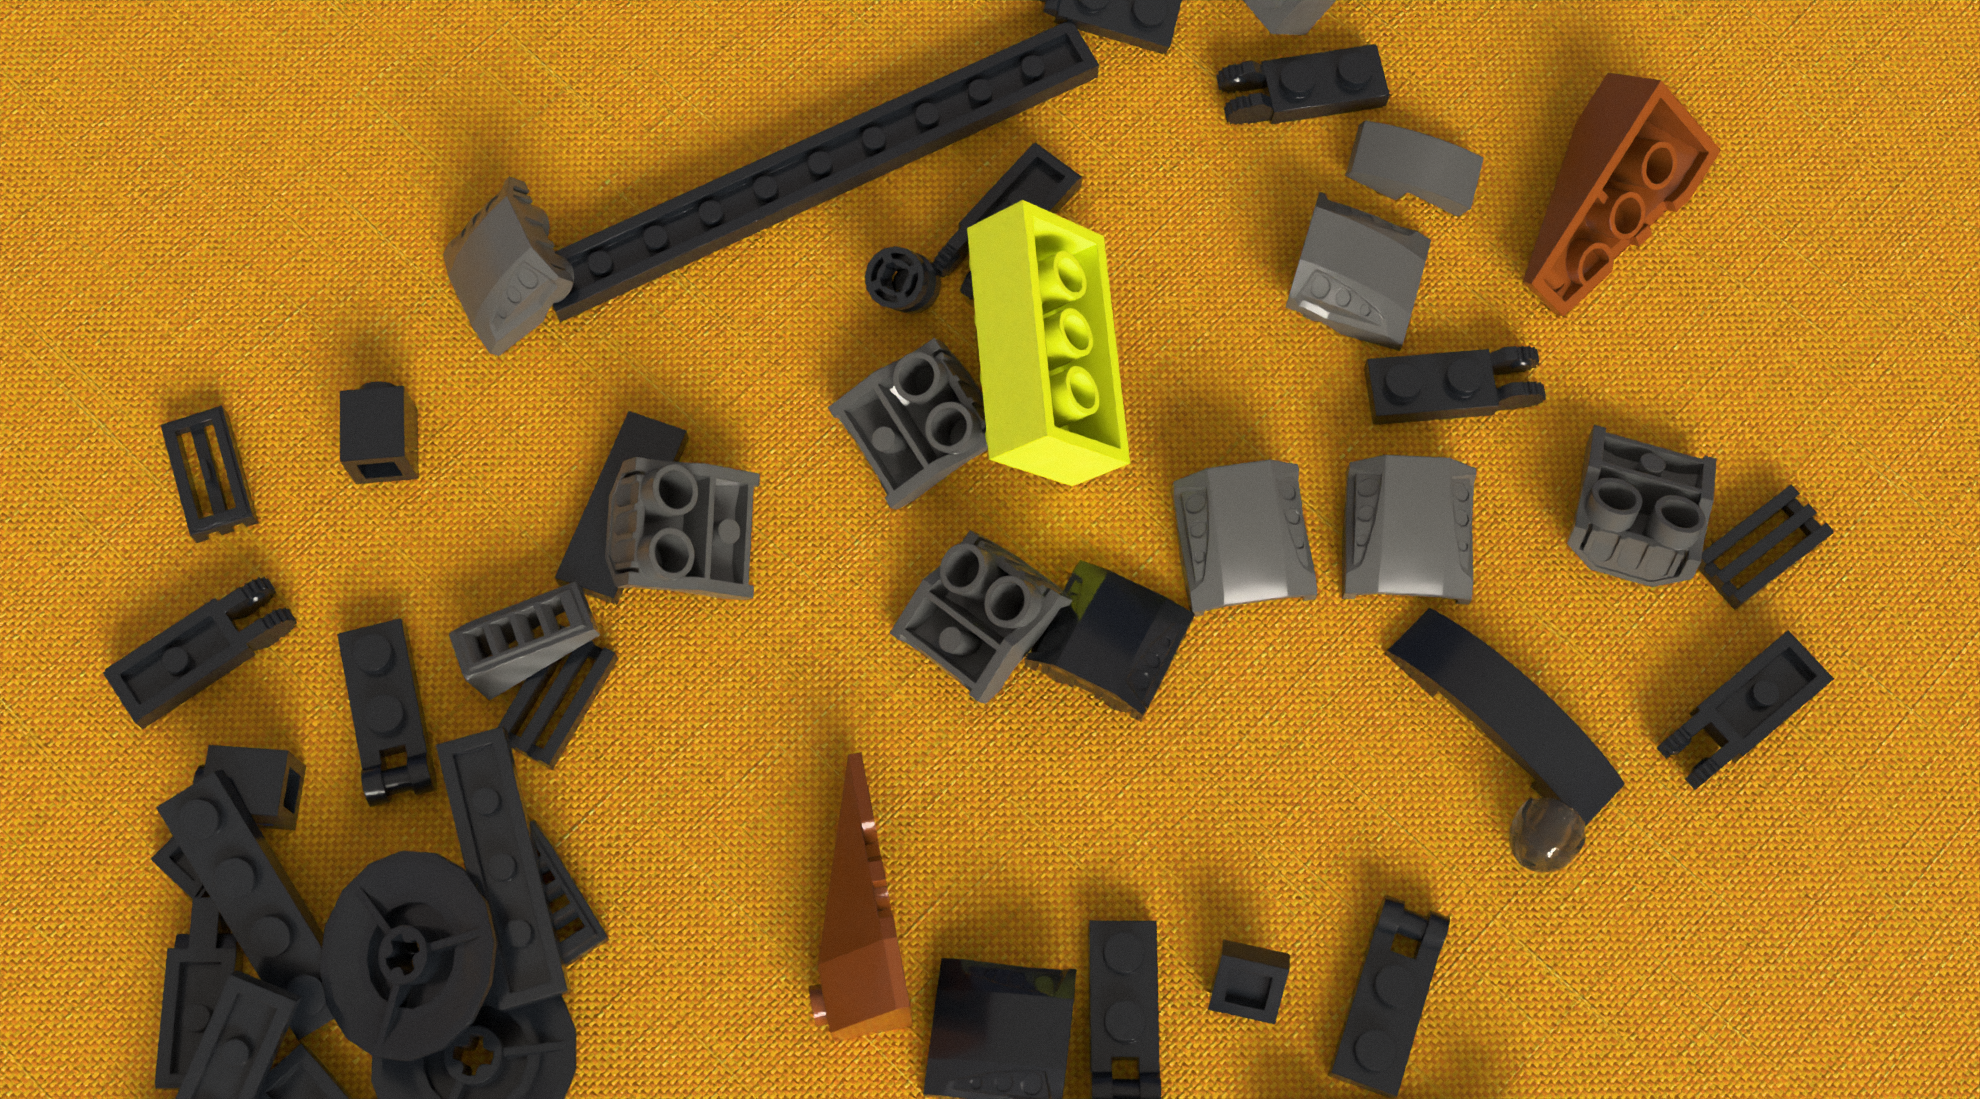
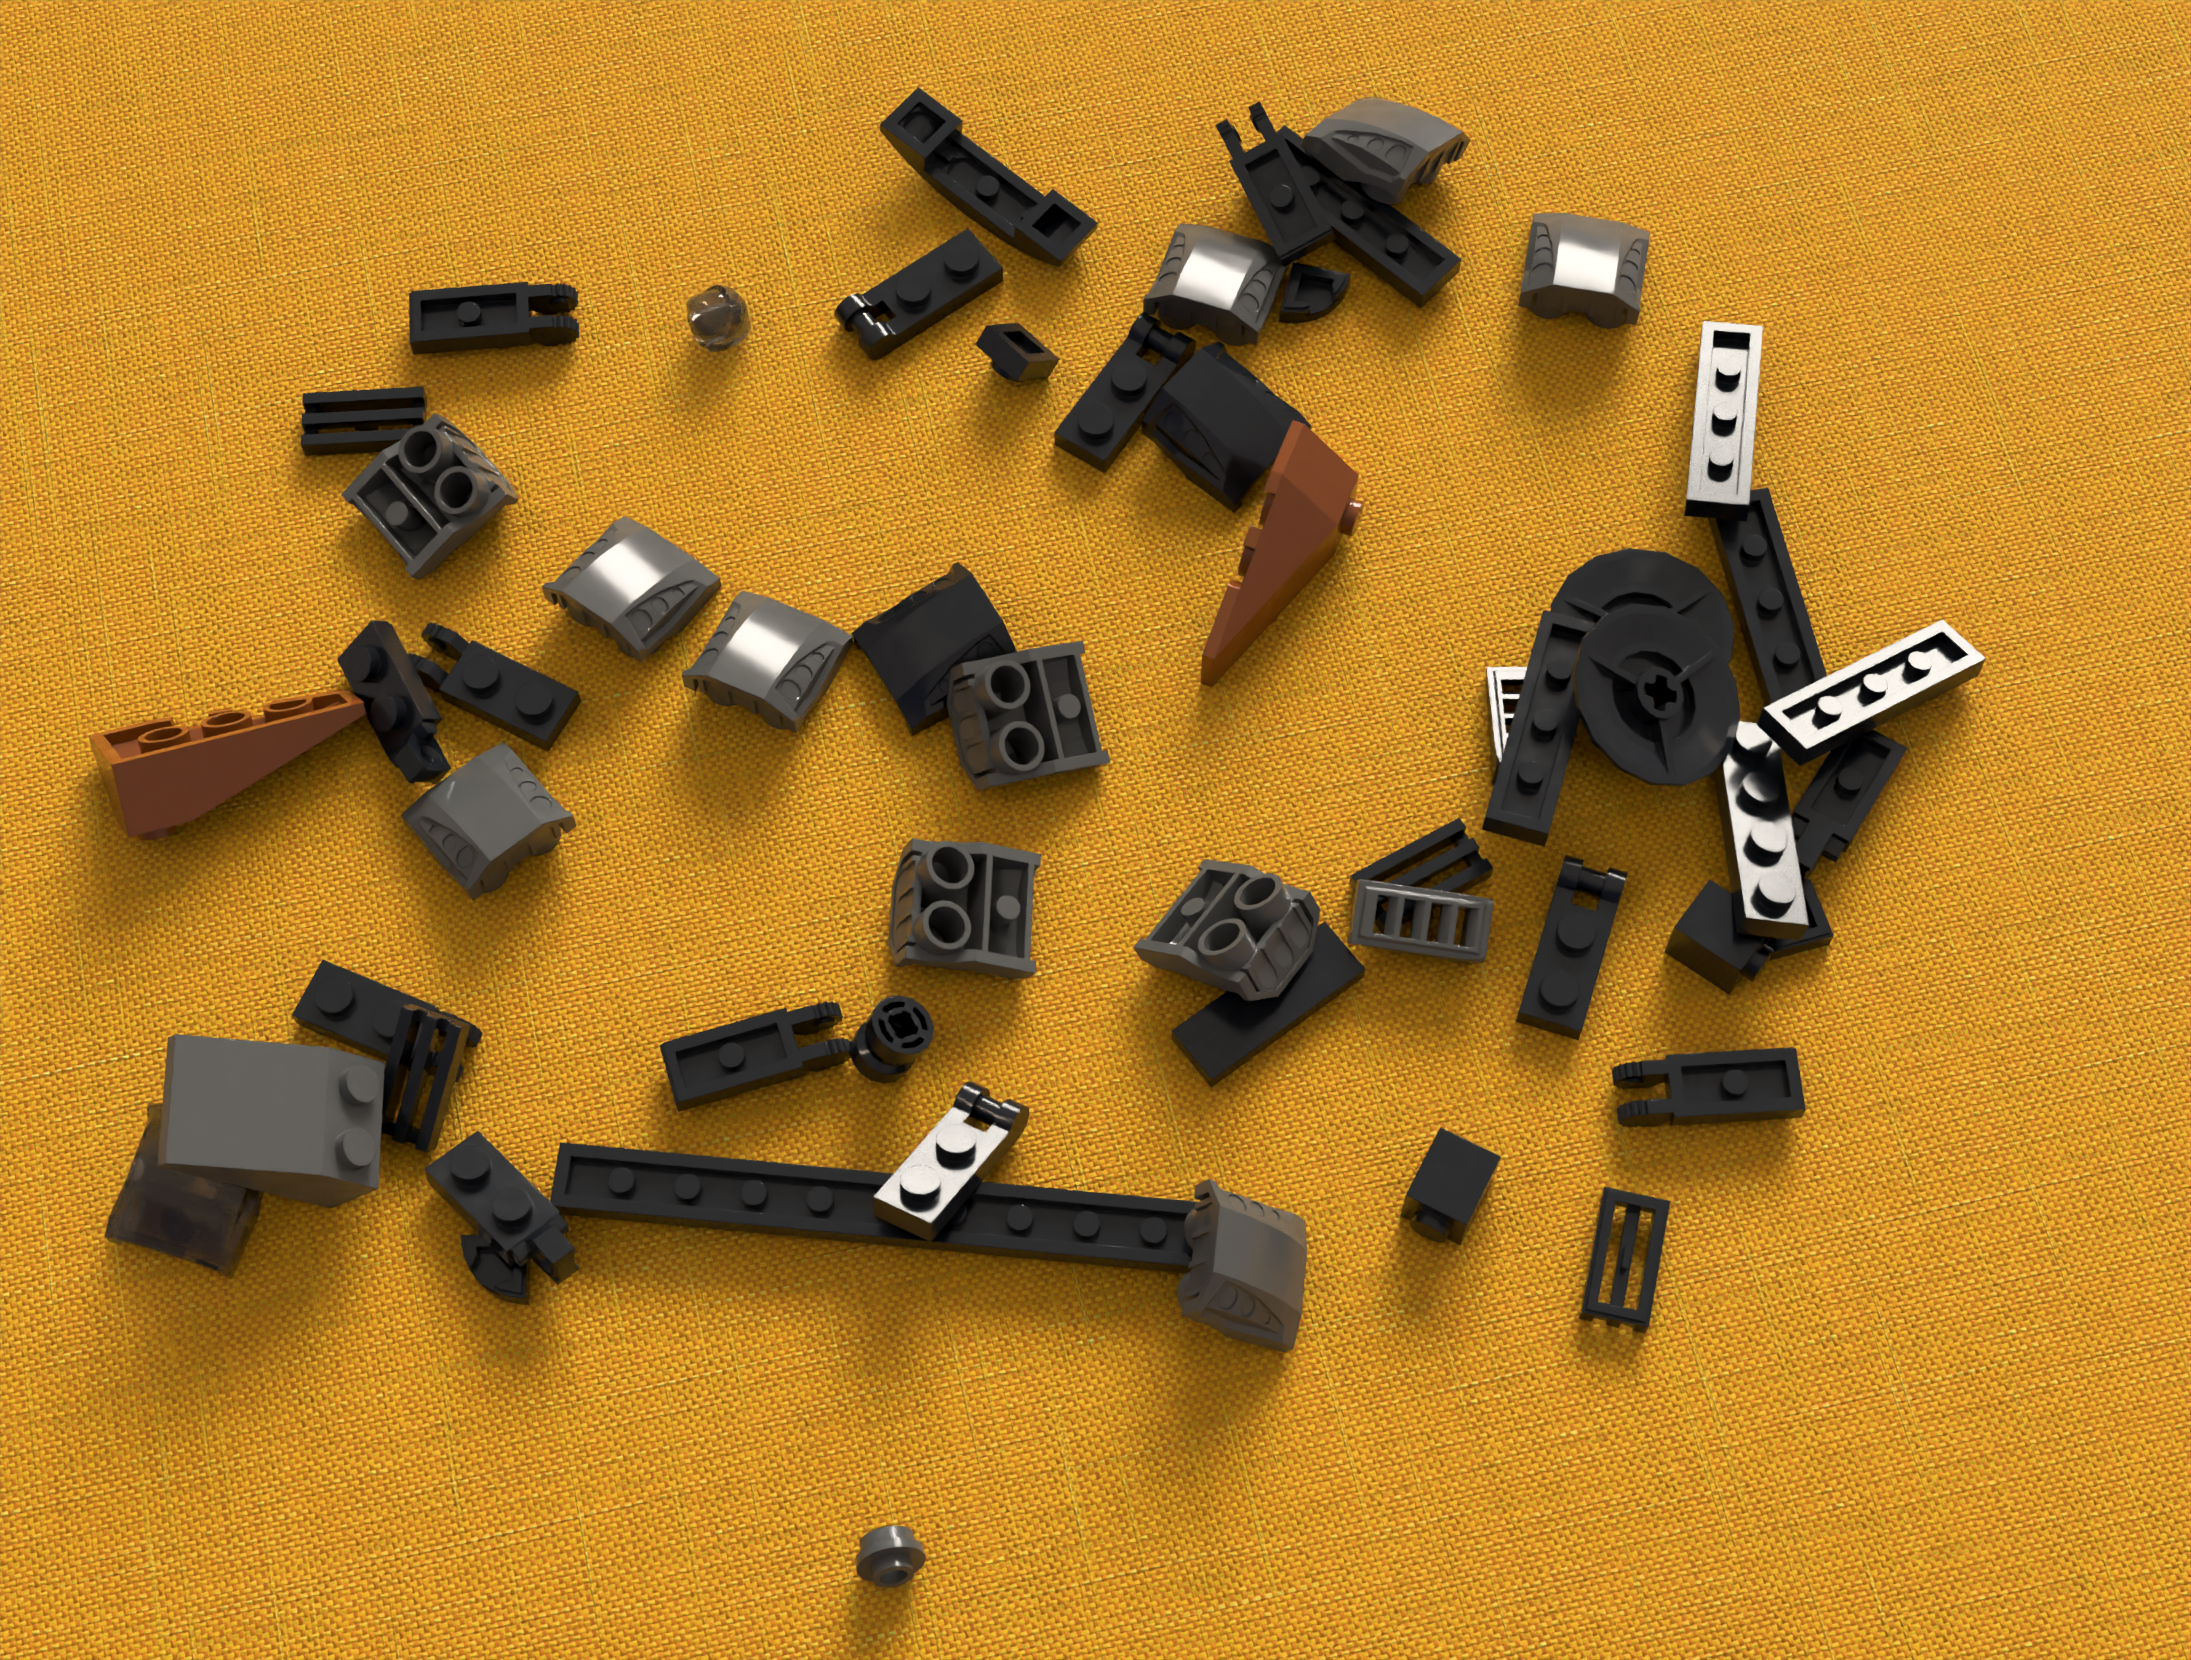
camera: 145 degrees left, 5 degrees down
(789, 213) = (950, 1162): none -> plate
(1047, 345) = (815, 883): neon yellow brick -> none
(1251, 45) = (396, 1069): none -> black tile
(1412, 162) = (359, 882): dark grey slope -> none
(1507, 310) = (395, 702): none -> black hinge
(1509, 711) = (673, 427): black slope -> none

